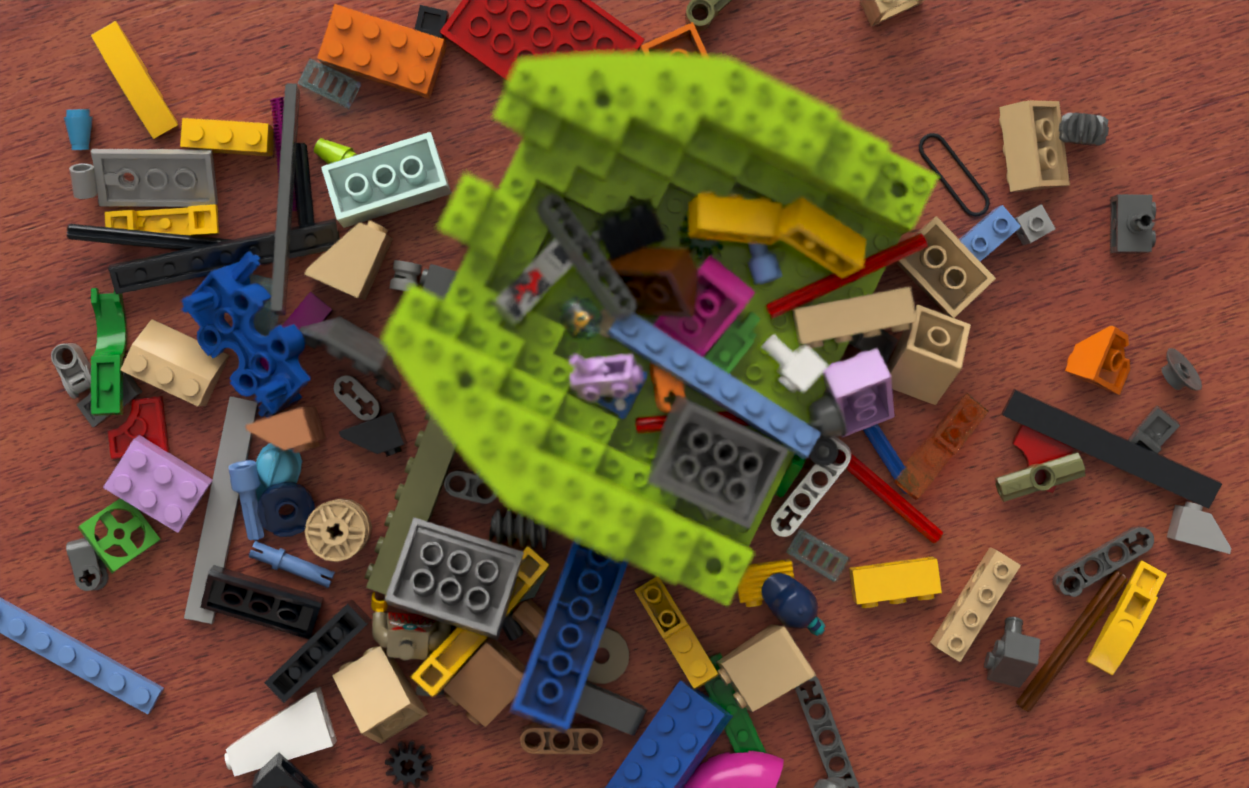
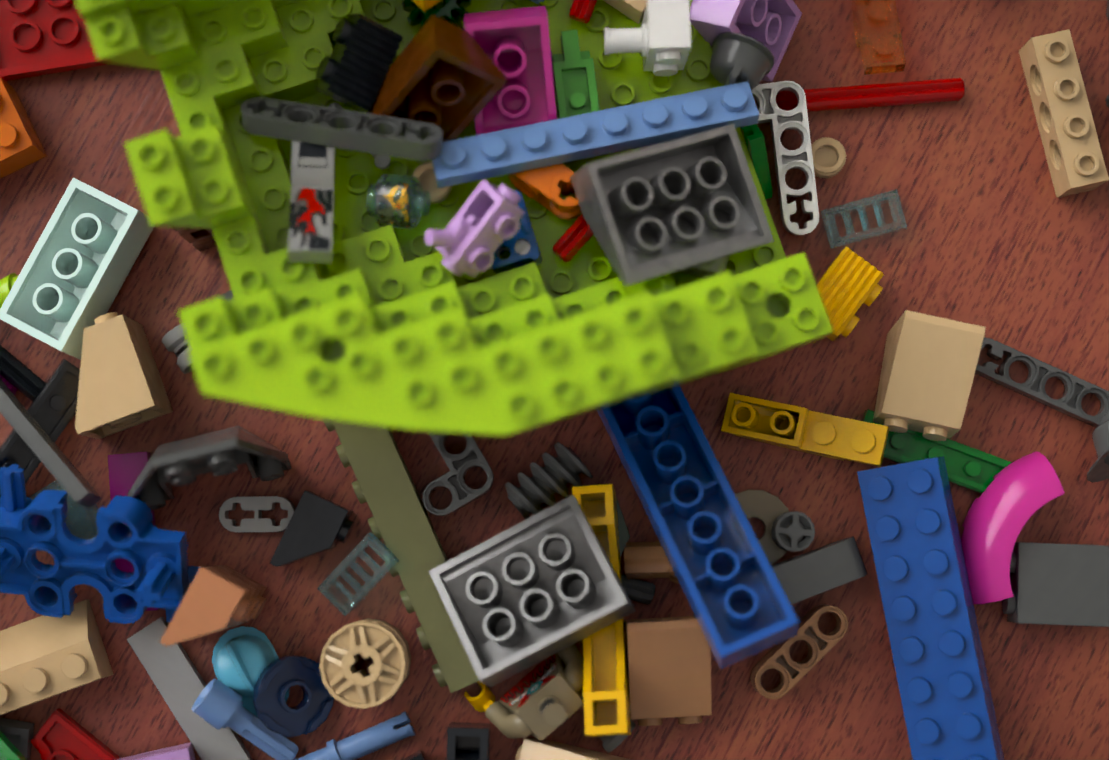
camera: 45 degrees left, 5 degrees down
(358, 481) = (338, 593): none -> clear light blue slope
(621, 681) = (800, 531): none -> dark grey wheel
(792, 603) = (889, 285): dark blue hair -> none
(824, 460) = (780, 97): black plate -> none
(832, 503) = (828, 157): none -> tan tile
(885, 450) = (828, 57): blue axle -> none
(895, 581) = (965, 169): yellow brick -> none

